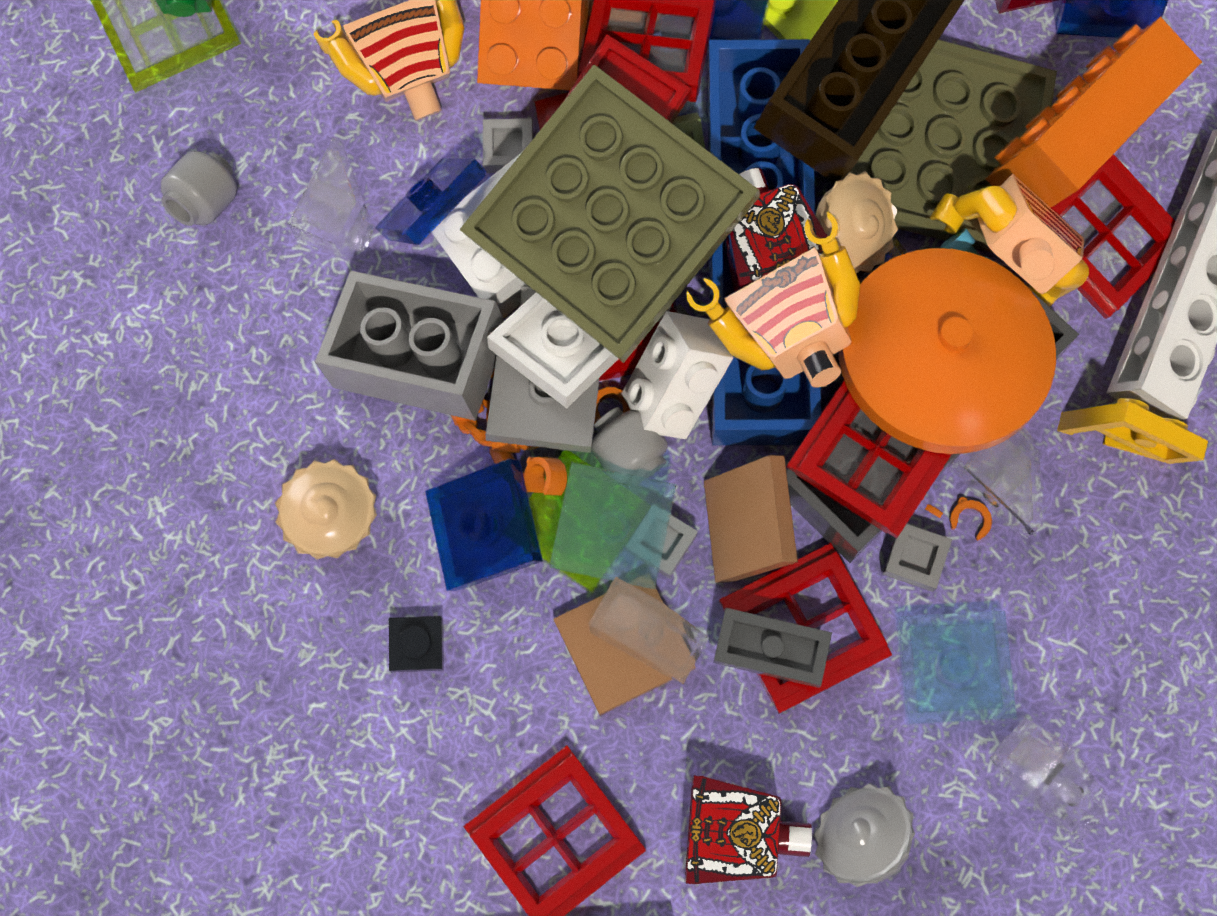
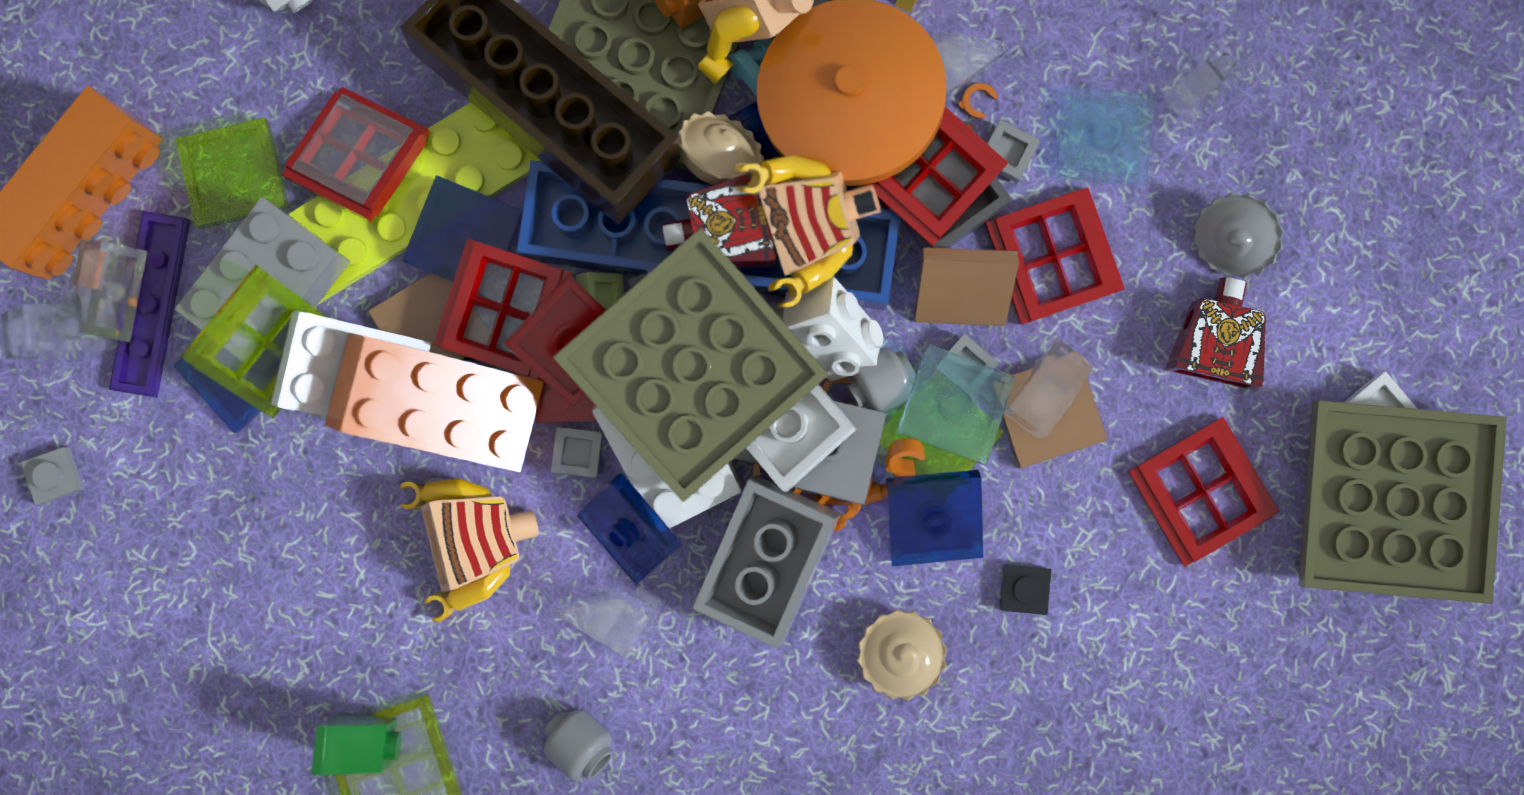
camera: 90 degrees left, 10 degrees up
(772, 647) = (1076, 285): dark grey plate -> none

